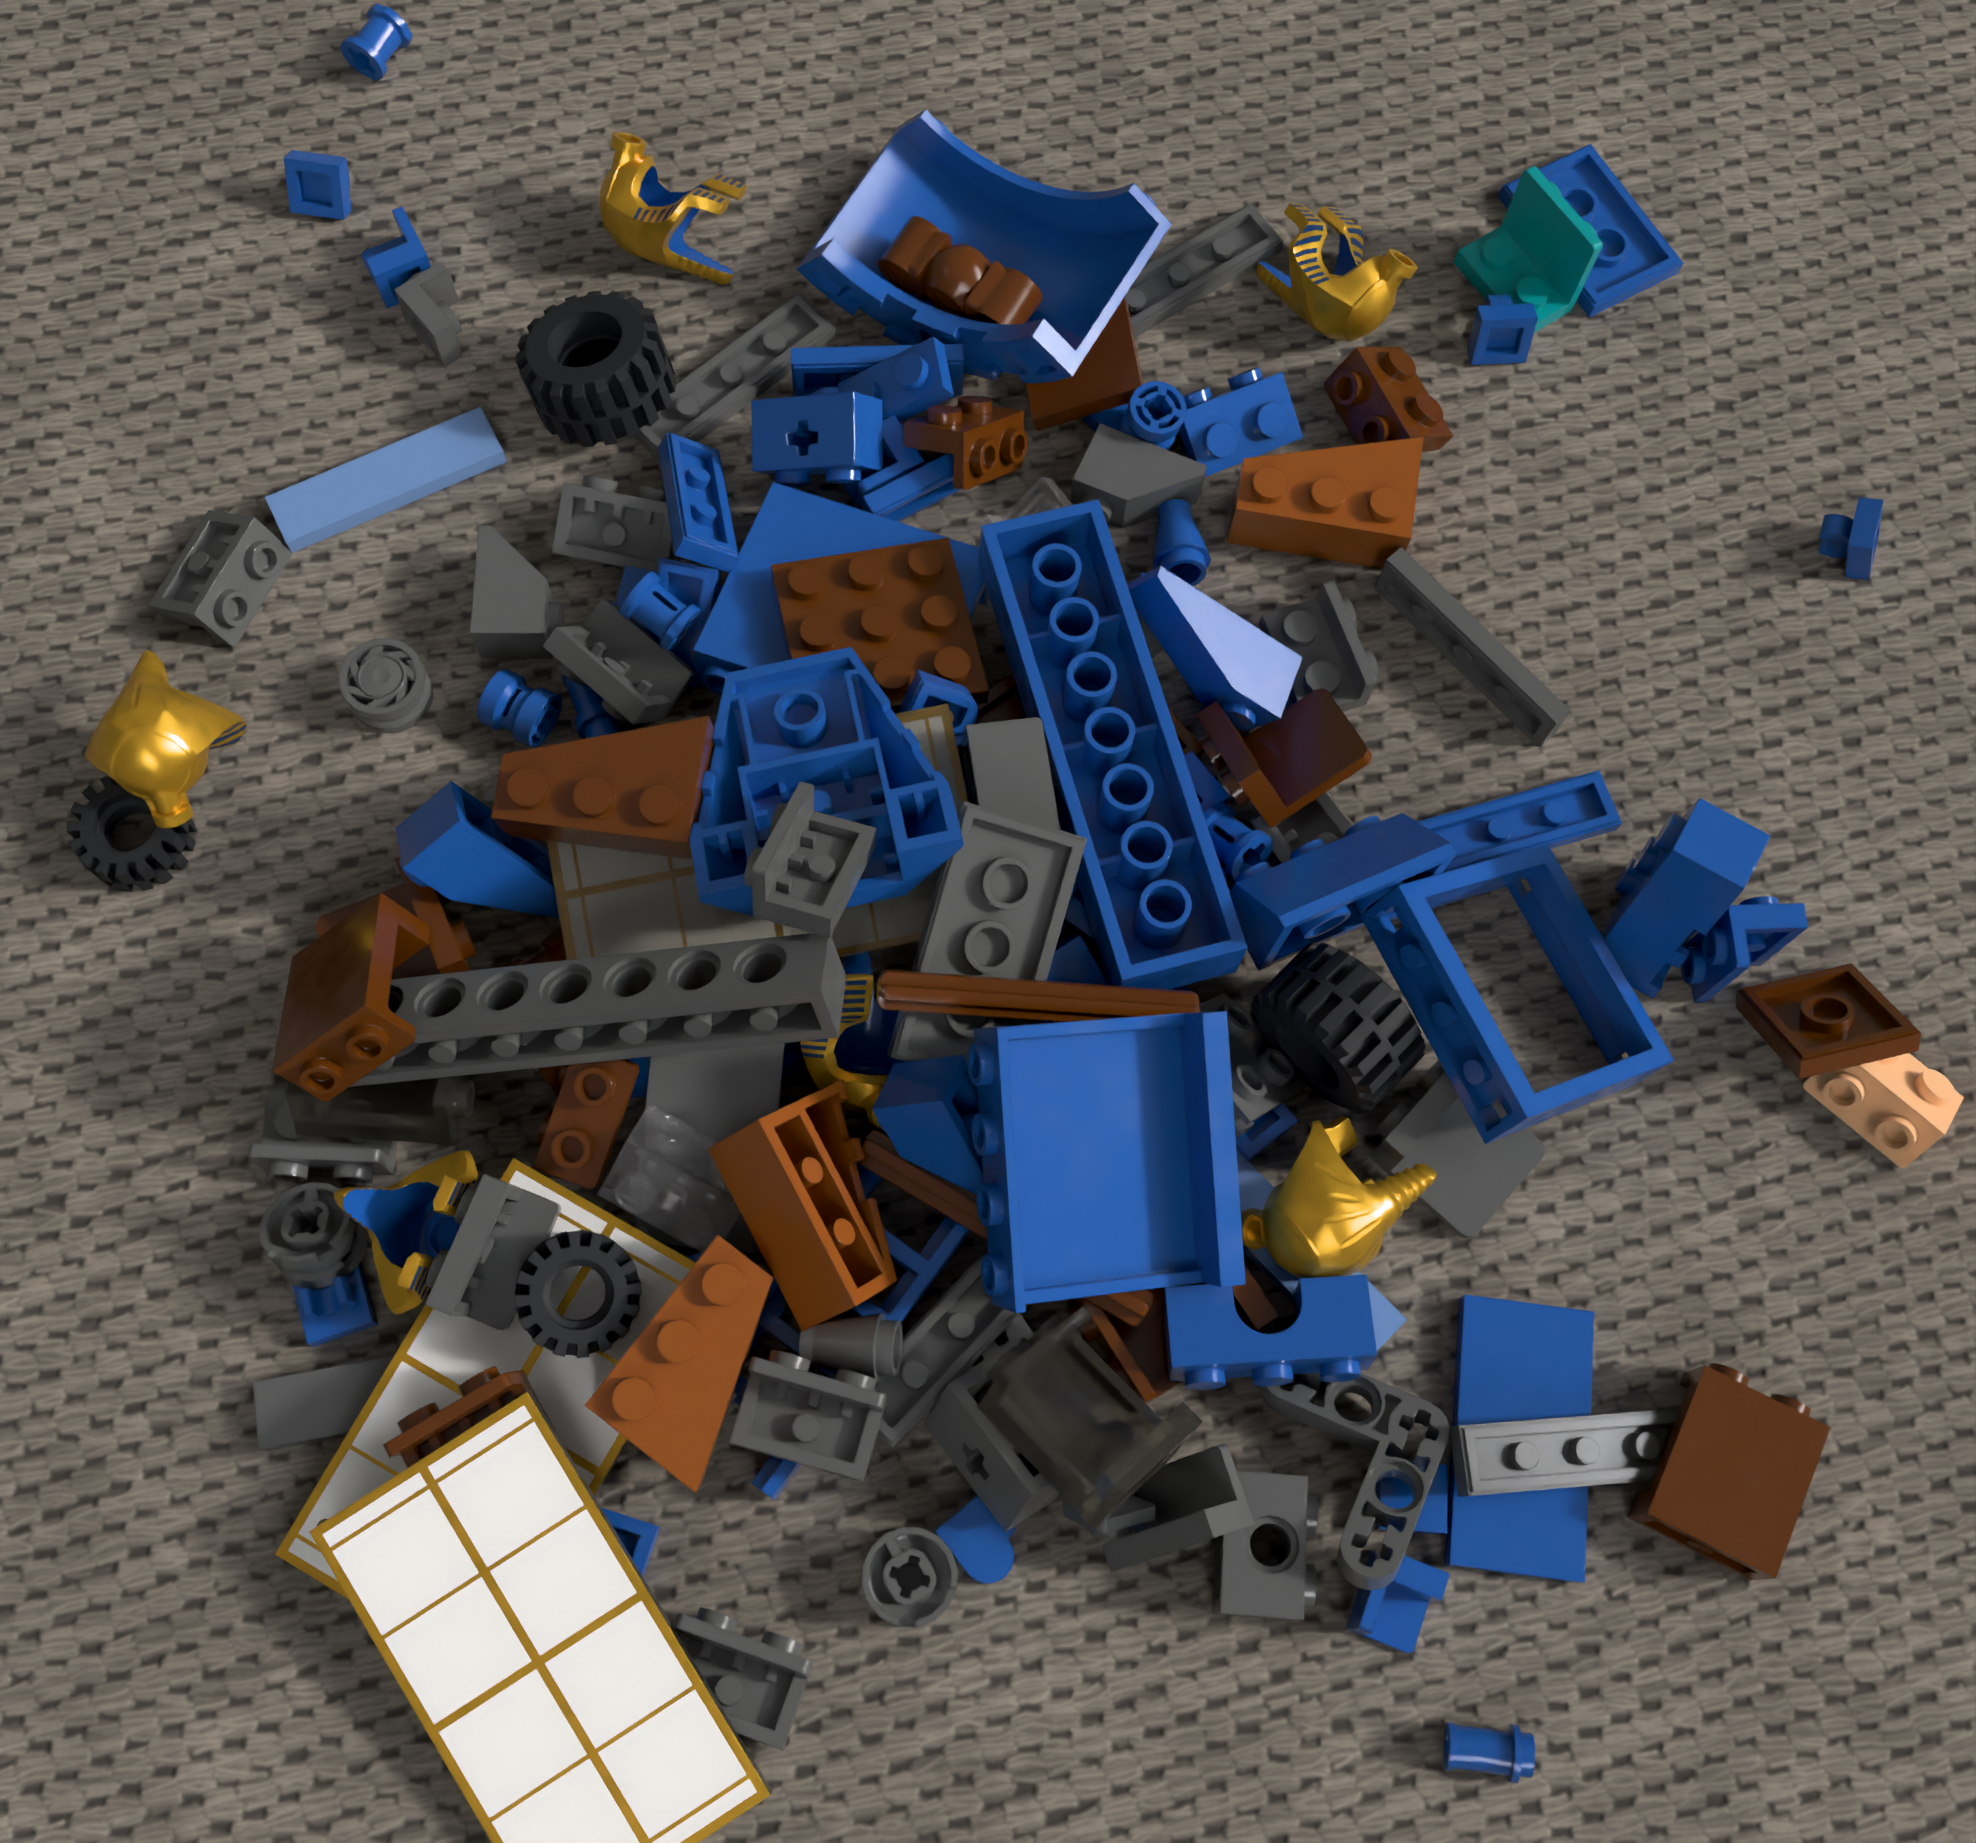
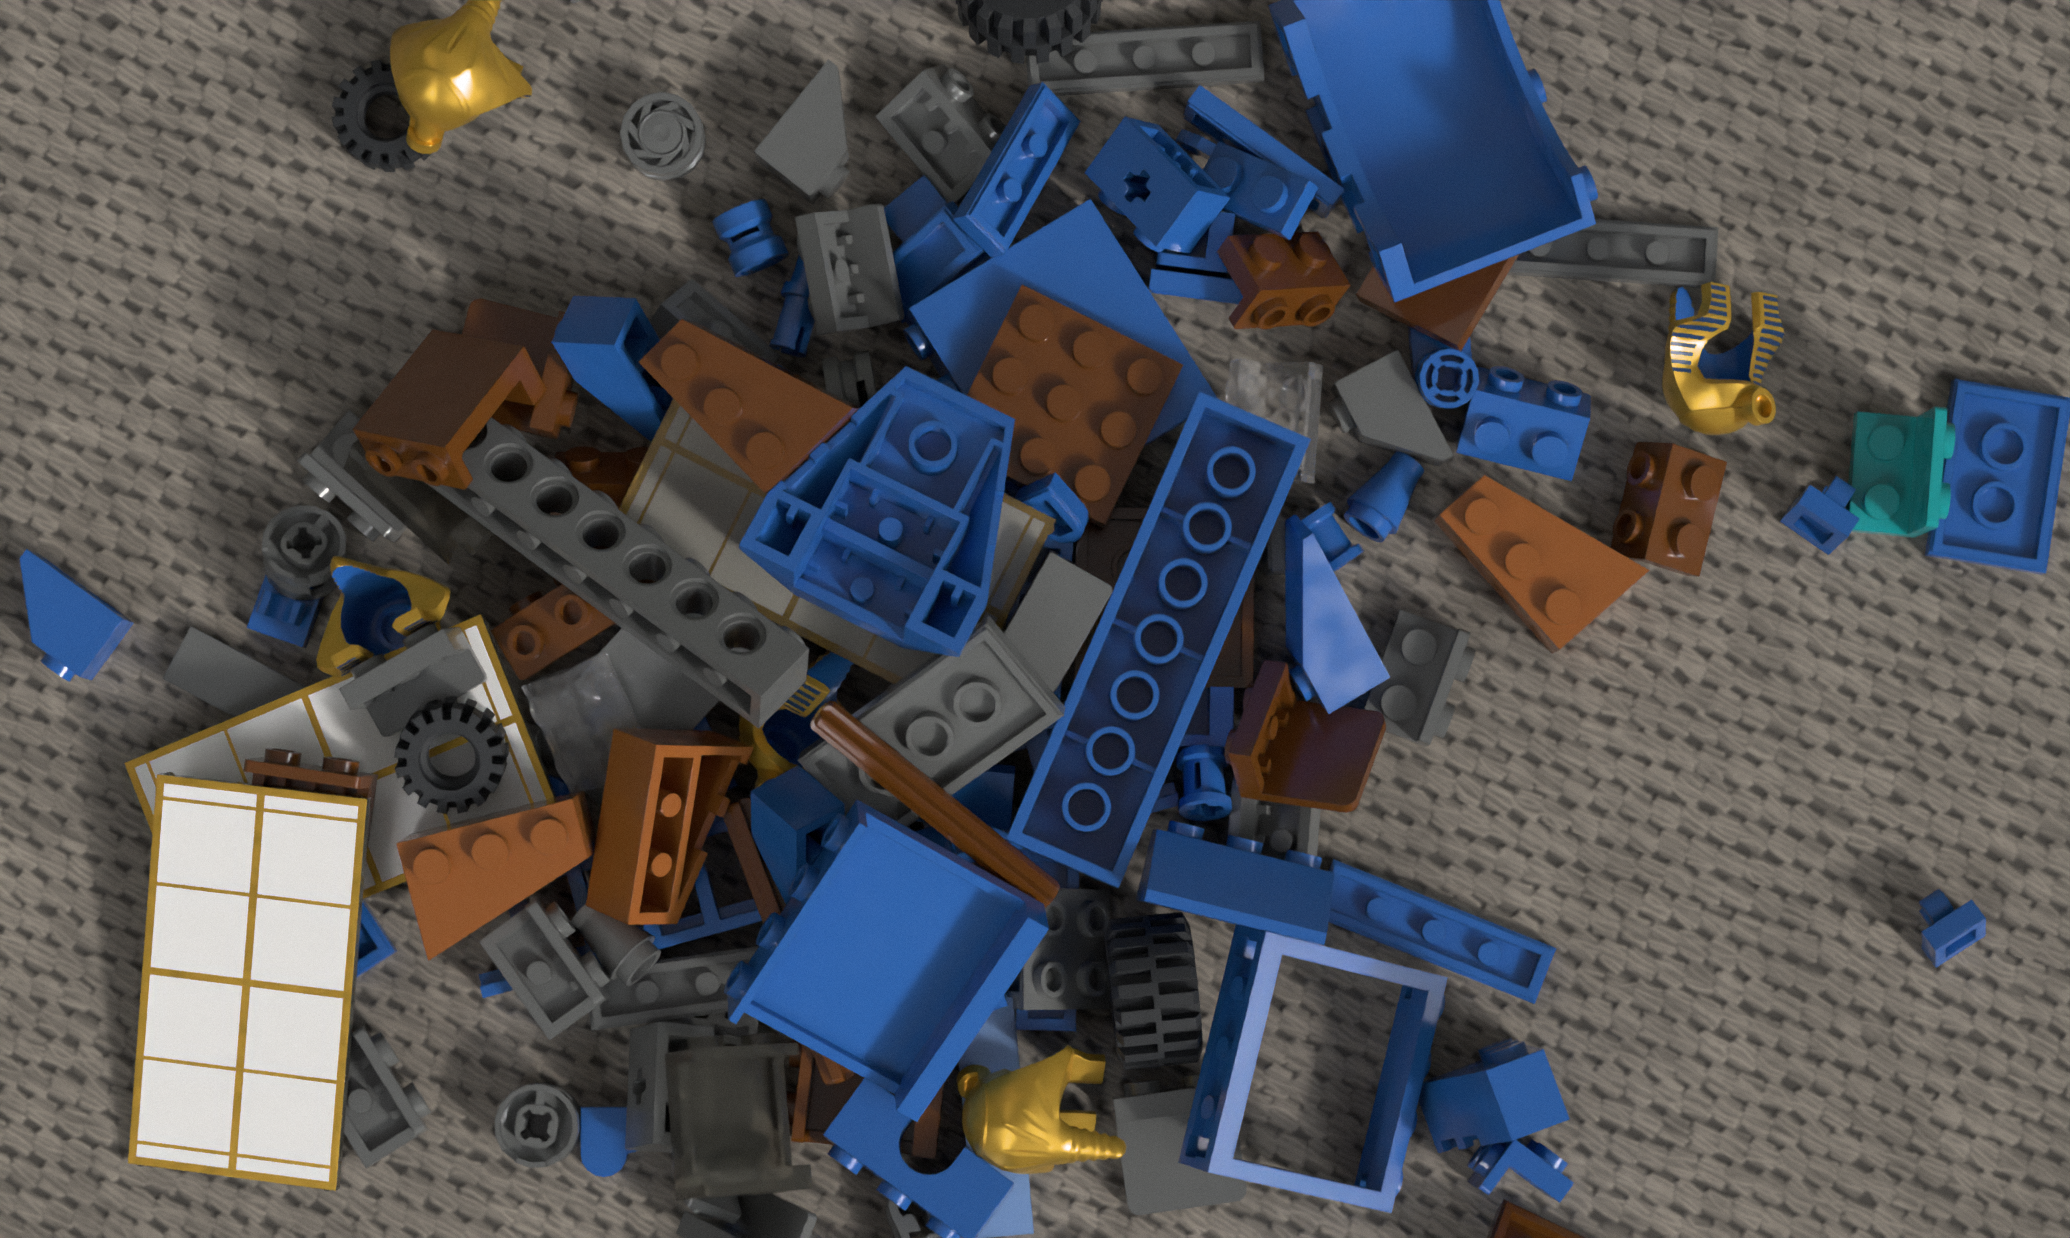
camera: 45 degrees right, 15 degrees up
(129, 1463) = (68, 620): none -> blue slope
(659, 611) = (909, 253): blue bush -> none
(807, 865) = (833, 587): dark grey bracket -> none
(957, 276) = (1390, 126): reddish brown piece -> none
(1471, 648) = (1540, 769): dark grey tile -> none

